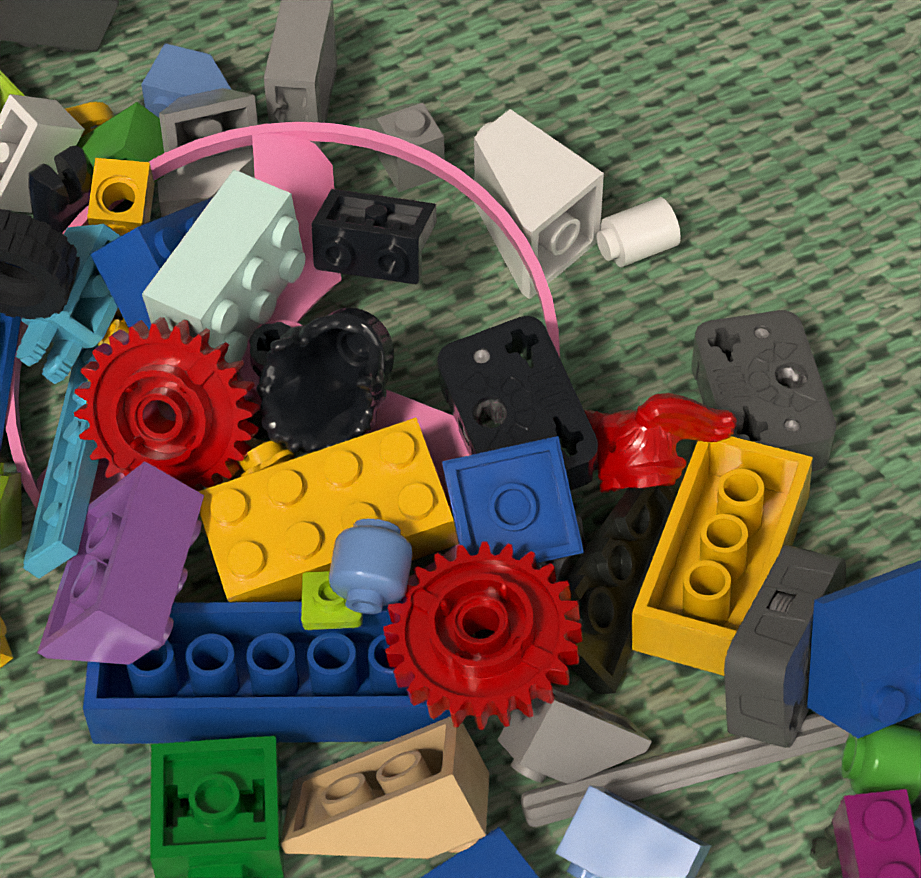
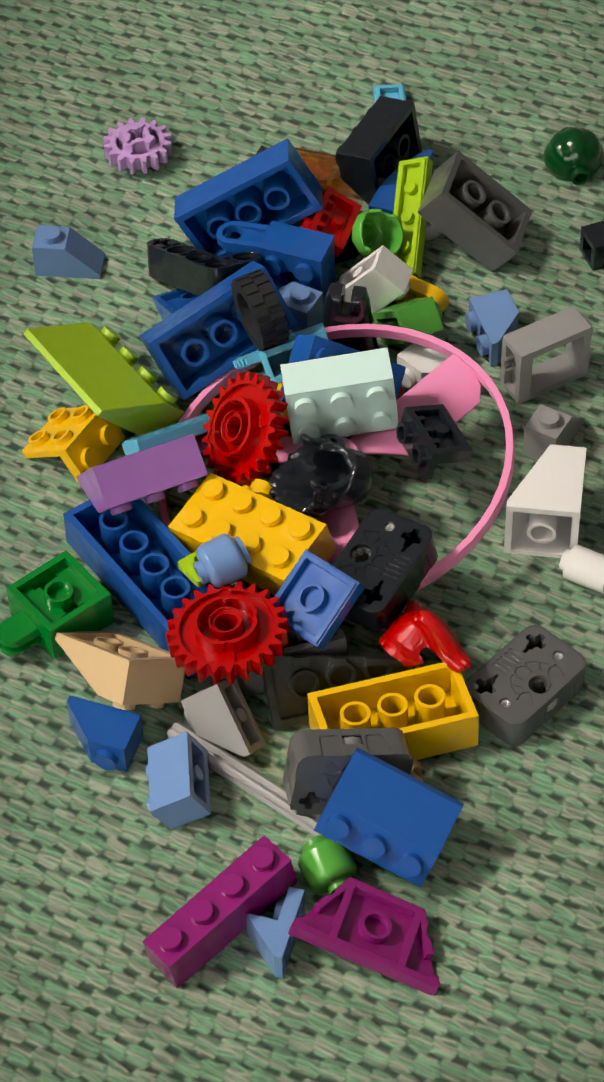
camera: 55 degrees right, 5 degrees down
(117, 181) = (361, 319): yellow brick -> none
(206, 115) = (458, 331): light grey slope -> none

